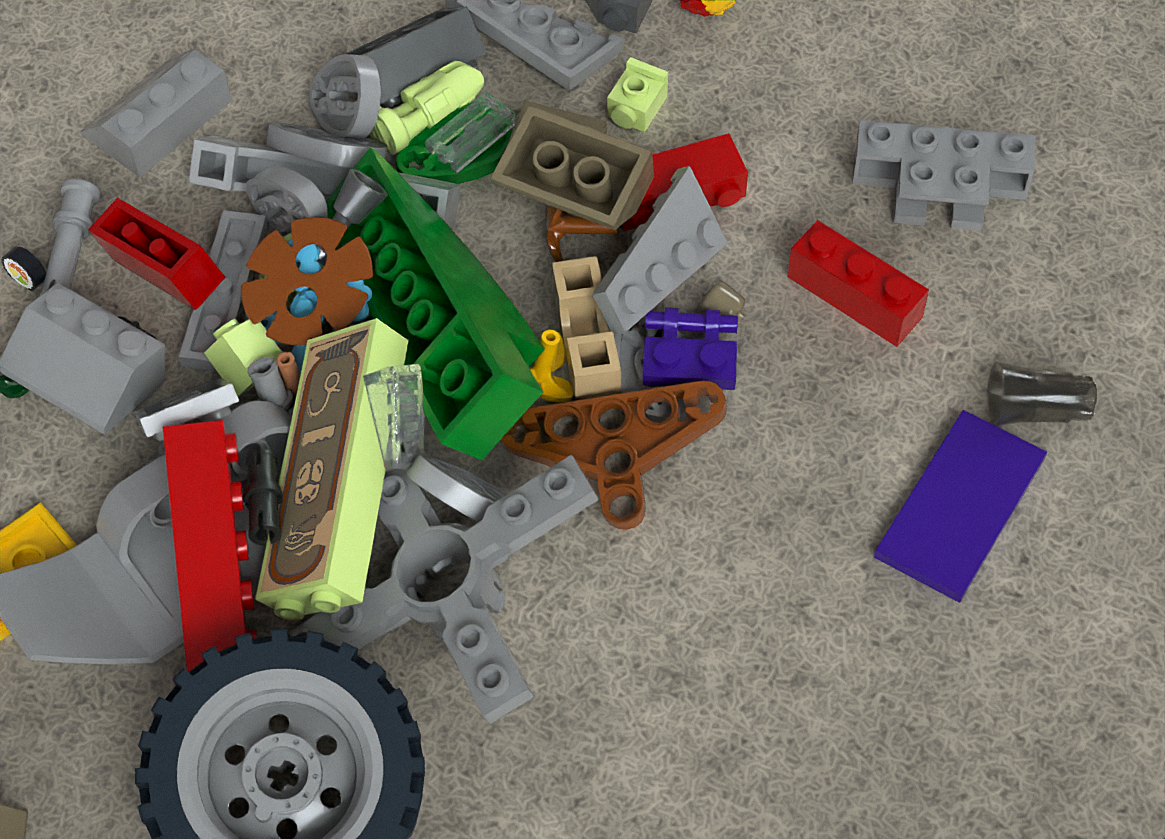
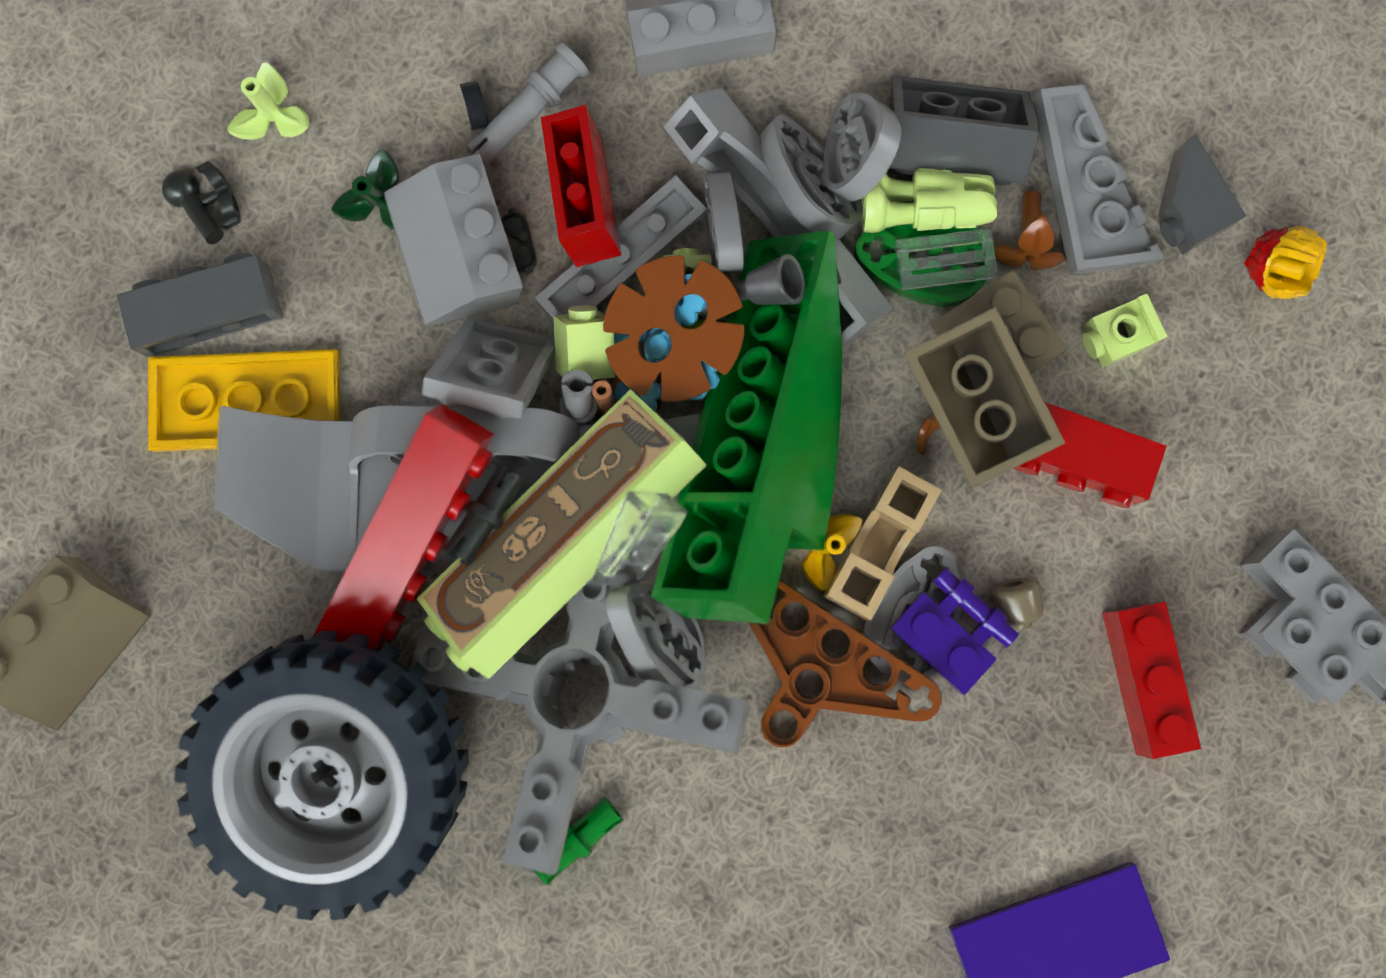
camera: 40 degrees right, 25 degrees up
(522, 77) = (1034, 240): none -> dark orange plant
(533, 714) = (585, 834): none -> green pin
(663, 255) = (1002, 527): light grey wing -> none
(1038, 395) = (1208, 908): clear smoke plant -> none

